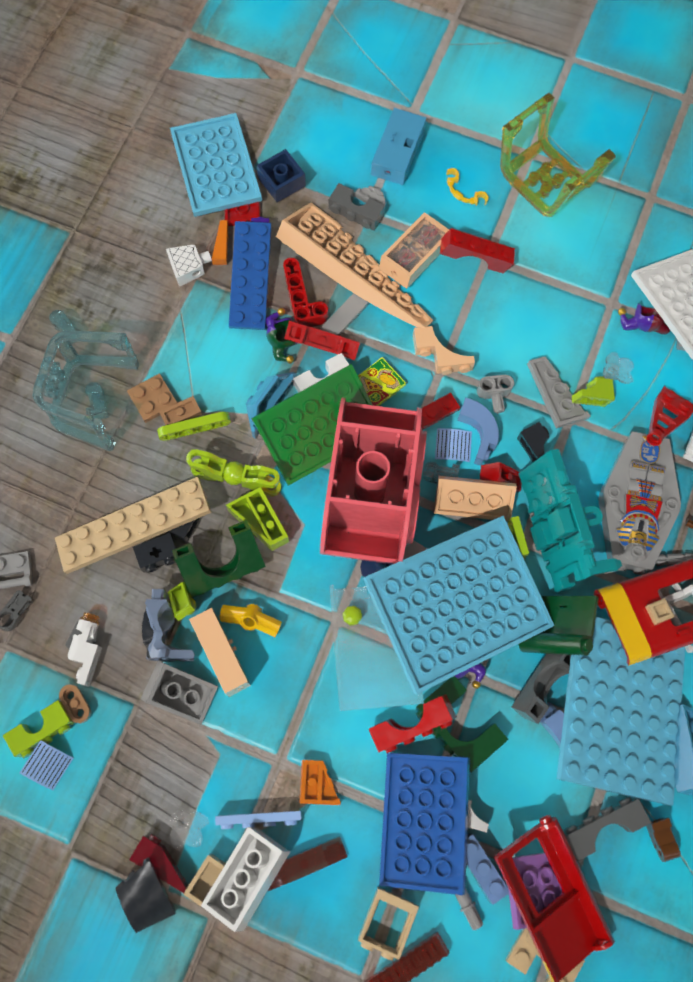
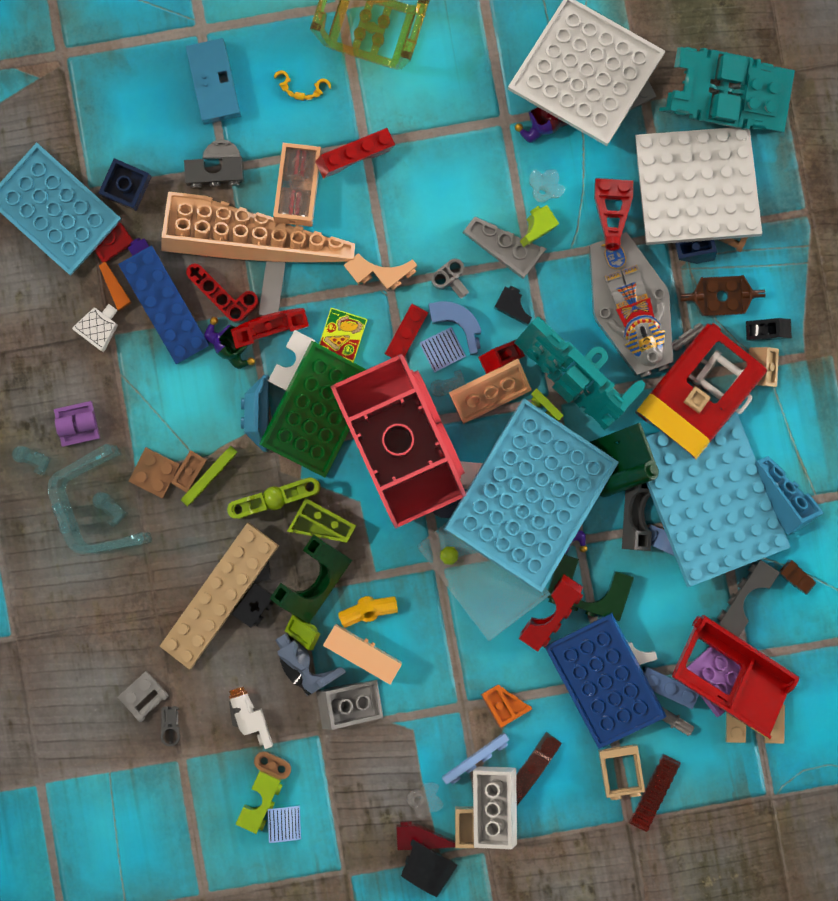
camera: 25 degrees left, 15 degrees up
(118, 319) = (76, 424): none -> medium lavender plate

